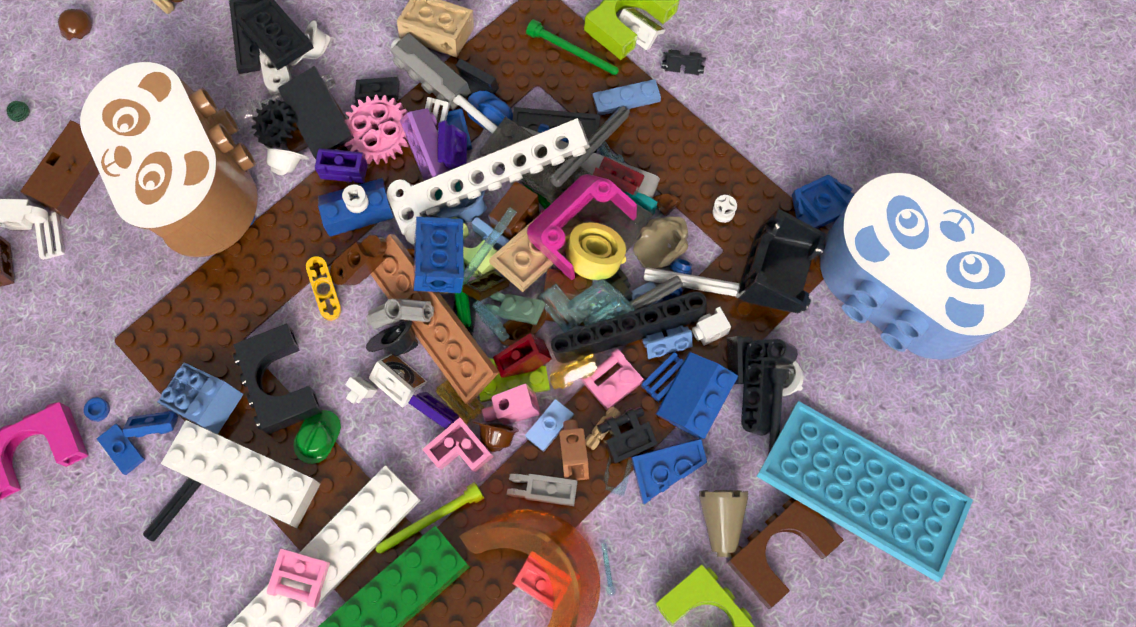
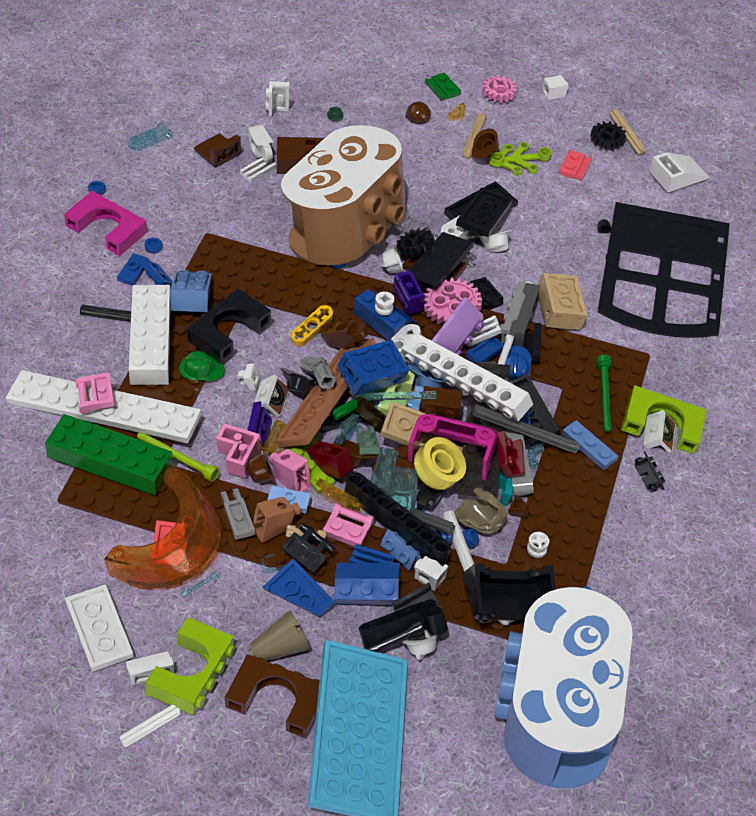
camera: 55 degrees right, 20 degrees down
(451, 145) = (467, 344): dark purple plate -> none

